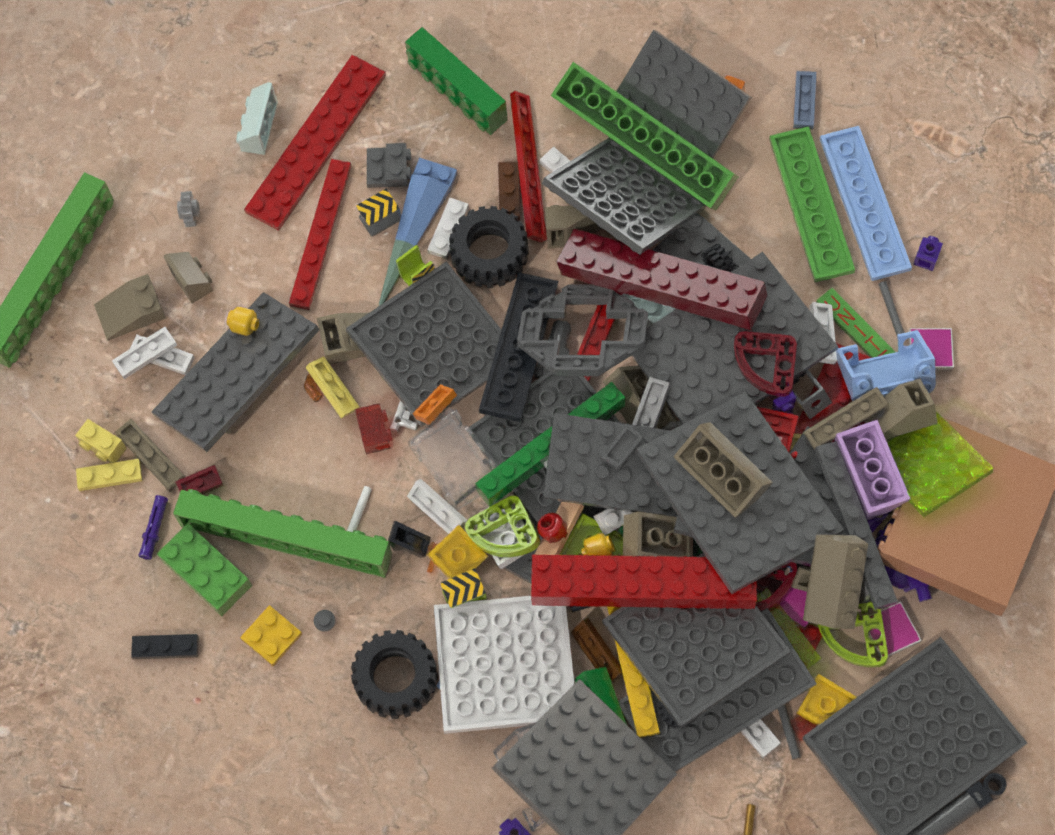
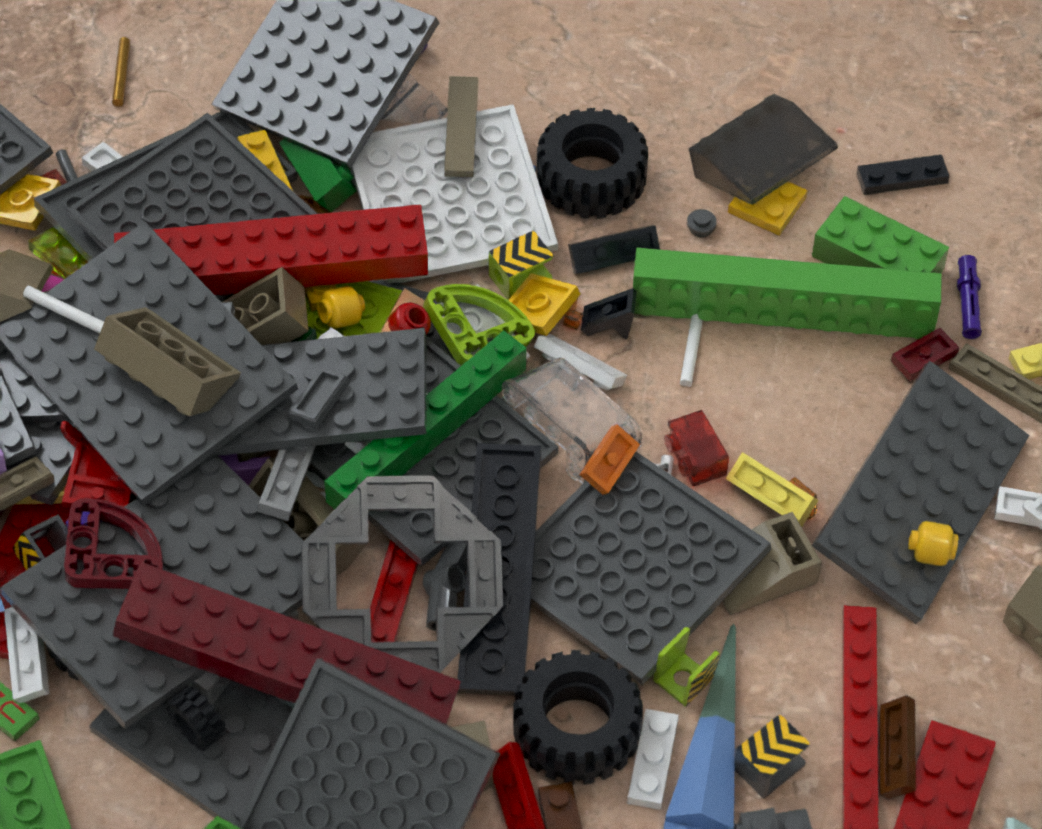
camera: 165 degrees right, 15 degrees down
(264, 665) = (760, 149): none -> clear smoke slope
(302, 212) = (897, 747): none -> reddish brown plate
(393, 601) = (611, 248): none -> black plate
(487, 711) = (461, 127): none -> dark tan tile
(790, 524) = (63, 309): none -> white bar

